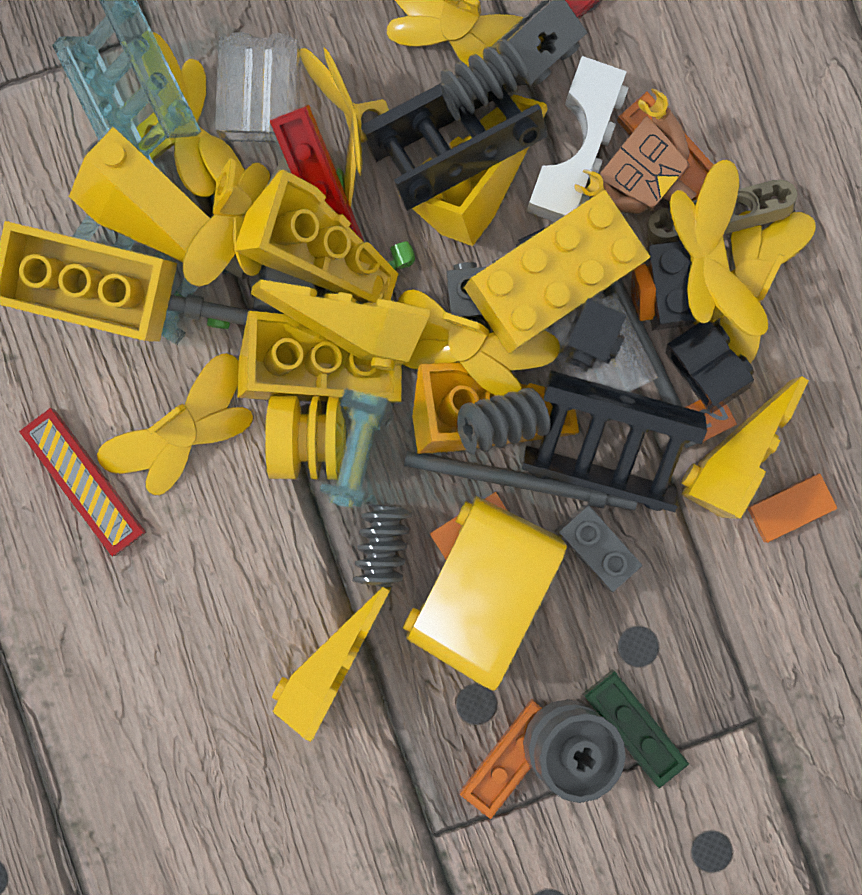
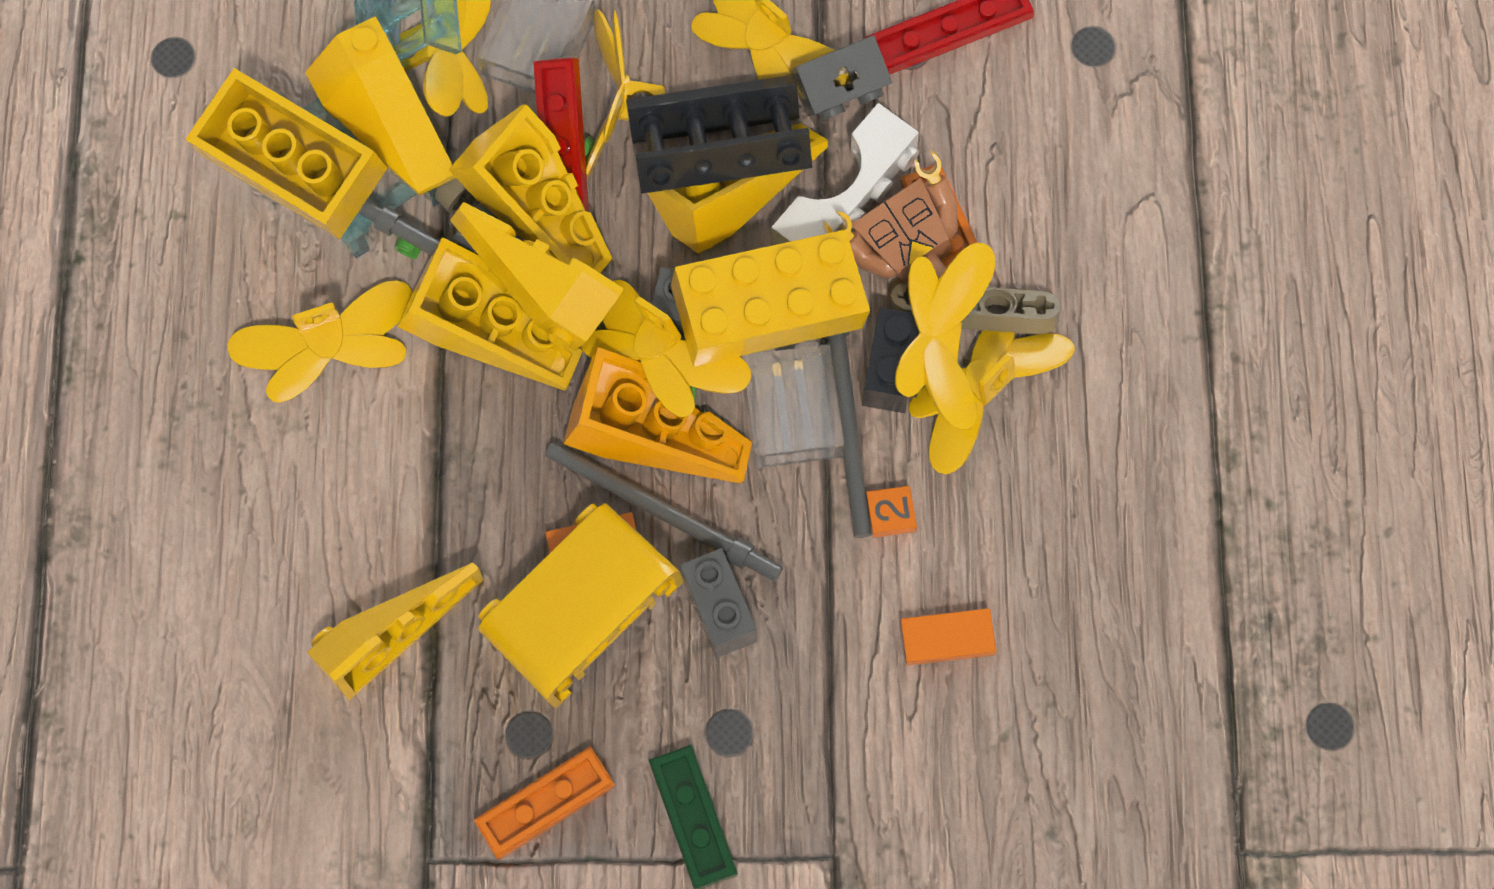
camera: 20 degrees right, 15 degrees down
(82, 482) = (203, 362): tile -> none
(234, 195) = (429, 162): yellow piece -> none
(304, 437) = (443, 382): yellow wheel -> none
(367, 416) = (510, 386): clear light blue fence -> none
(382, 545) = (488, 523): dark grey piece -> none
(402, 255) = (624, 243): bright green hand -> none
(481, 77) = (763, 89): dark grey piece -> none
(502, 419) = (661, 423): dark grey piece -> none
(574, 751) = (640, 799): dark grey wheel -> none
(593, 336) = (781, 369): black brick -> none
(609, 404) = (809, 471): black fence -> none
(643, 293) = (860, 357): orange tile -> none
(710, 365) = (906, 454): black brick -> none
(731, 471) = (896, 564): yellow wedge -> none

